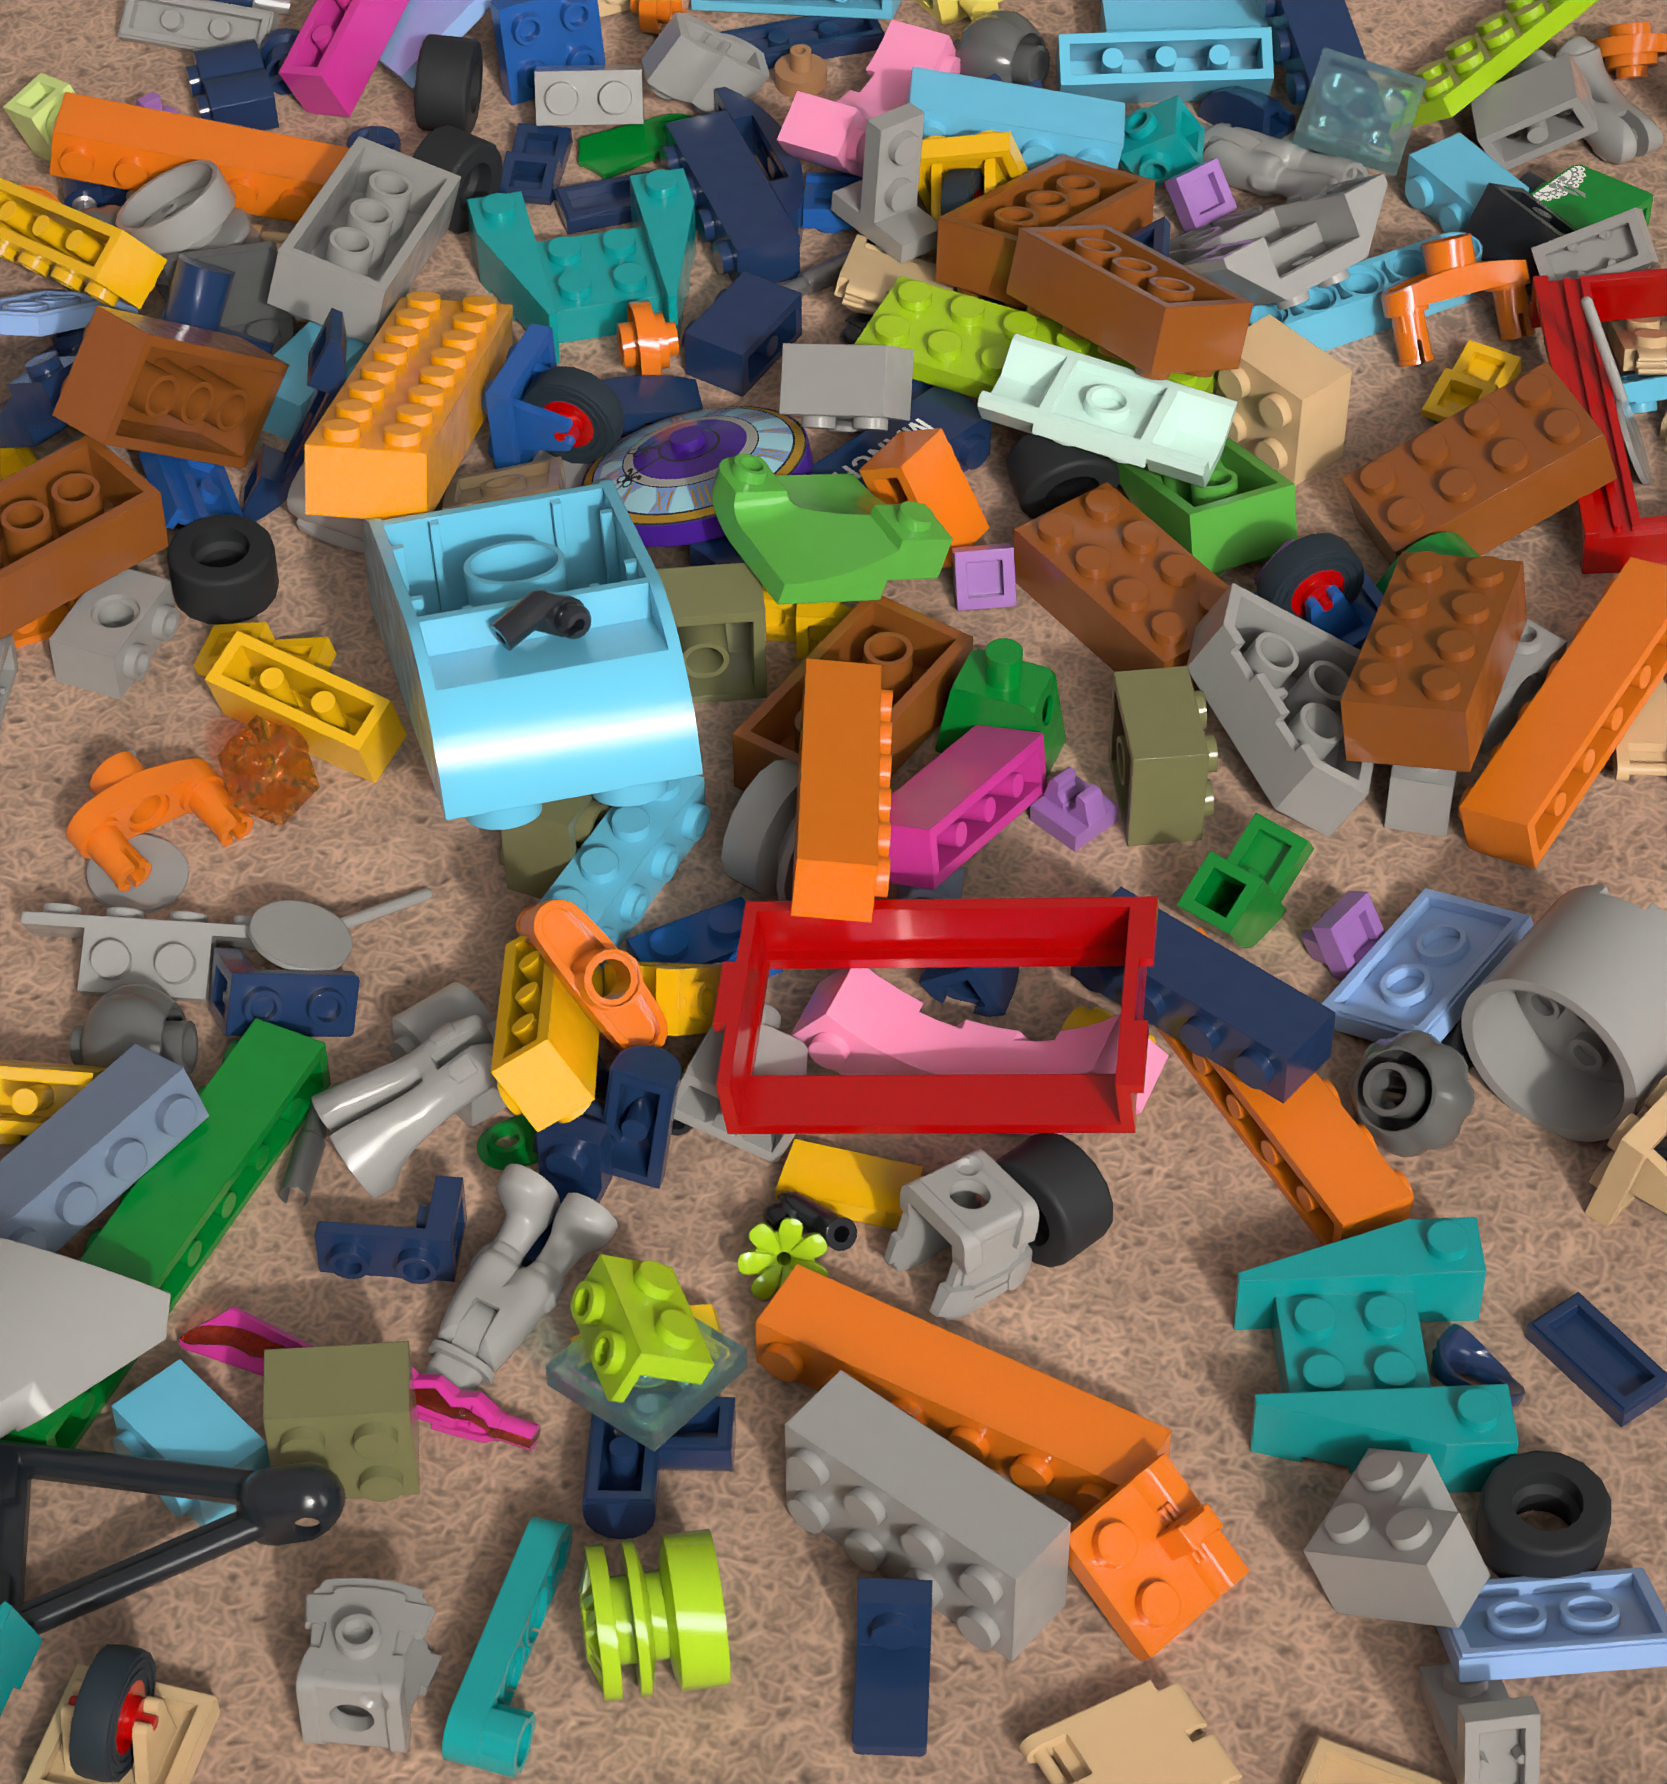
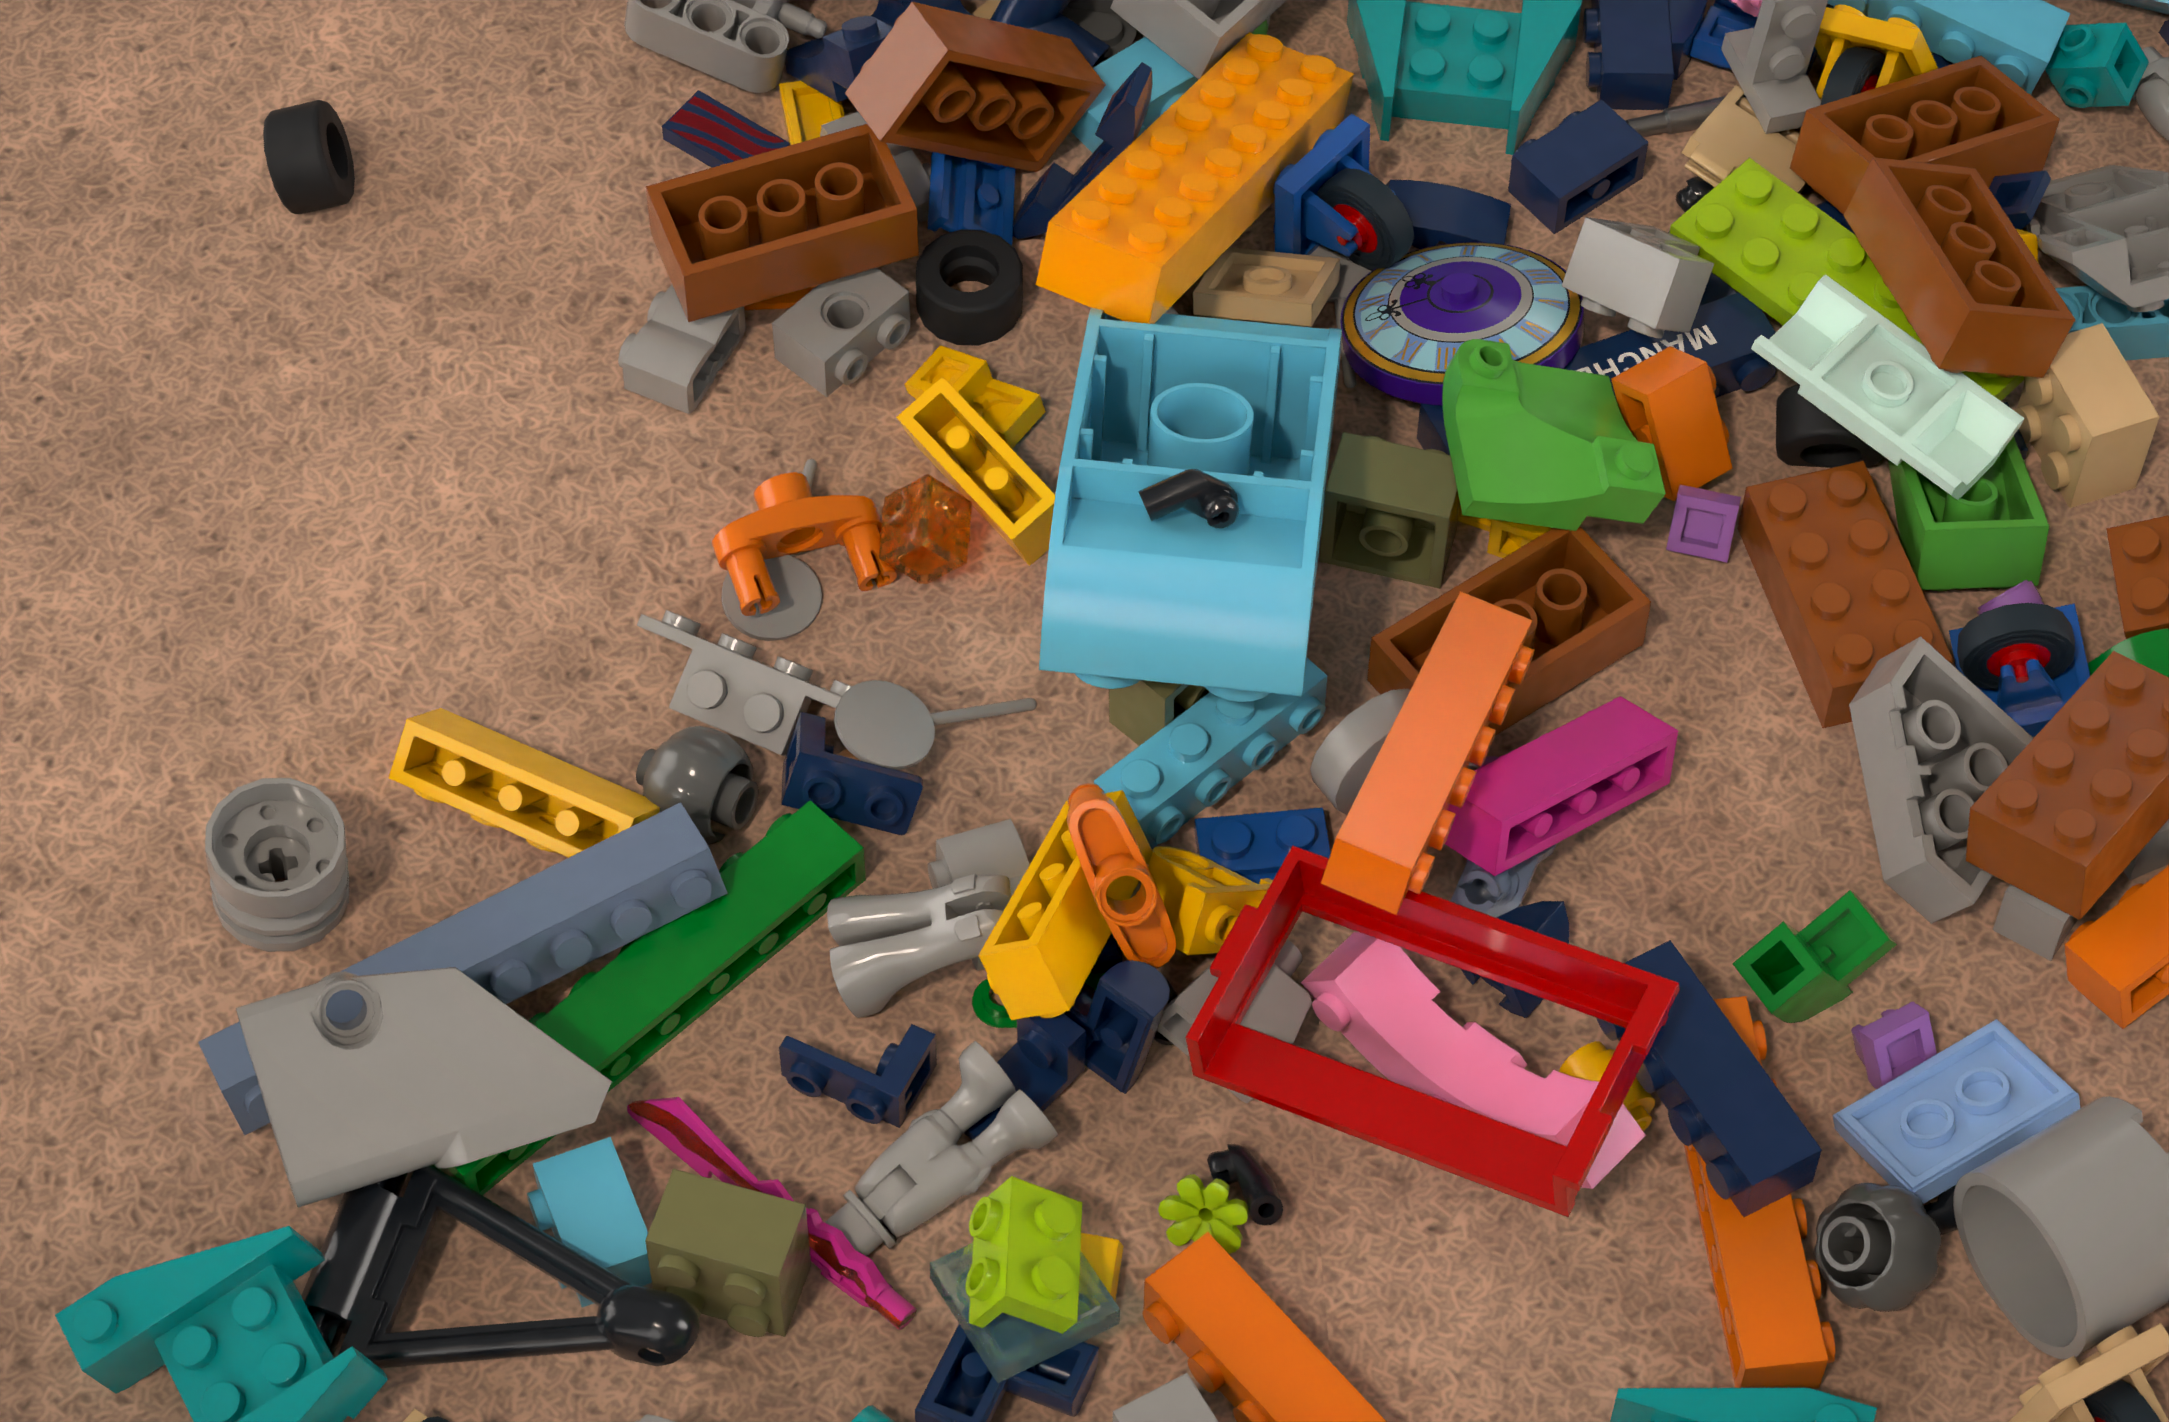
camera: 20 degrees right, 10 degrees up
(305, 1157) = (806, 959): flat silver pin -> none
(646, 339) = (1474, 150): orange plate -> none
(848, 1181) = (1305, 1156): yellow tile -> none
(986, 1241) = (1385, 1276): light grey piece -> none
(1004, 693) = (1661, 678): green torso -> none
(1068, 1193) = (1475, 1243): black tyre -> none
(1073, 810) = (1686, 814): medium lavender tile -> none
(1161, 755) = (1789, 791): olive brick -> none
(1200, 194) = (2112, 138): medium lavender tile -> none

